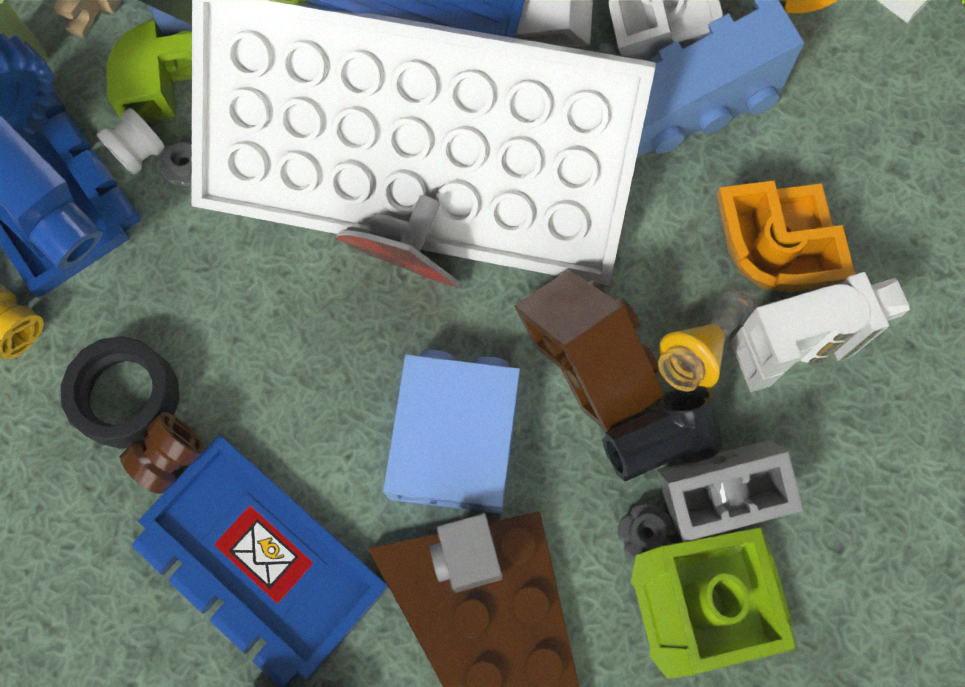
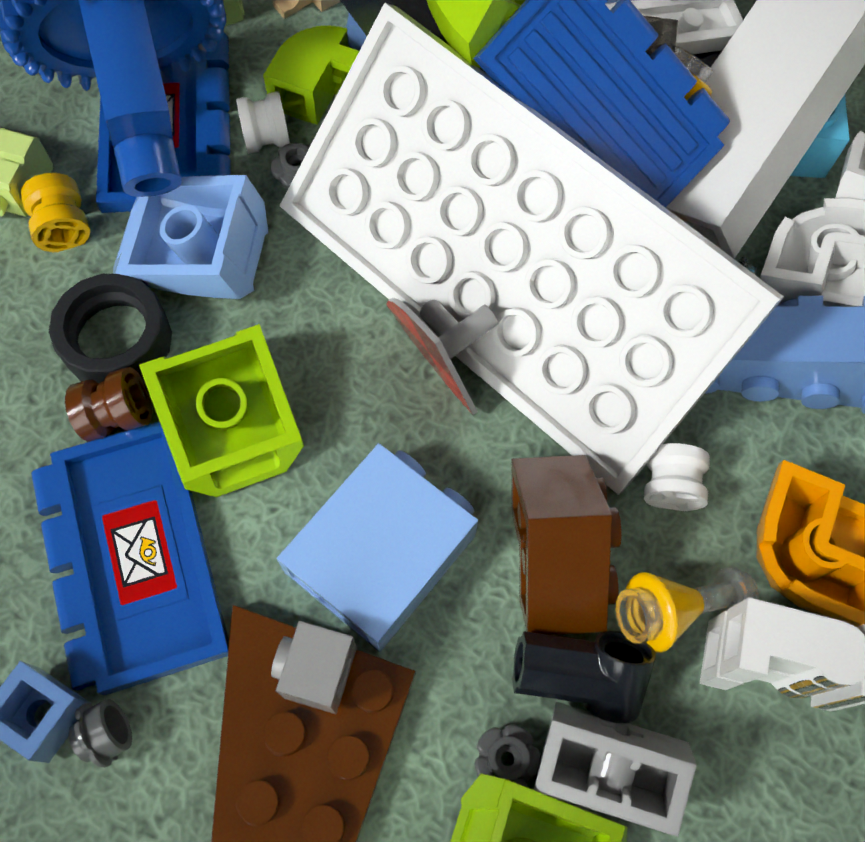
camera: 25 degrees right, 5 degrees down
(139, 274) = (196, 238): none -> light blue slope
(263, 403) = (224, 413): none -> lime slope
(647, 246) = (677, 477): none -> white wheel

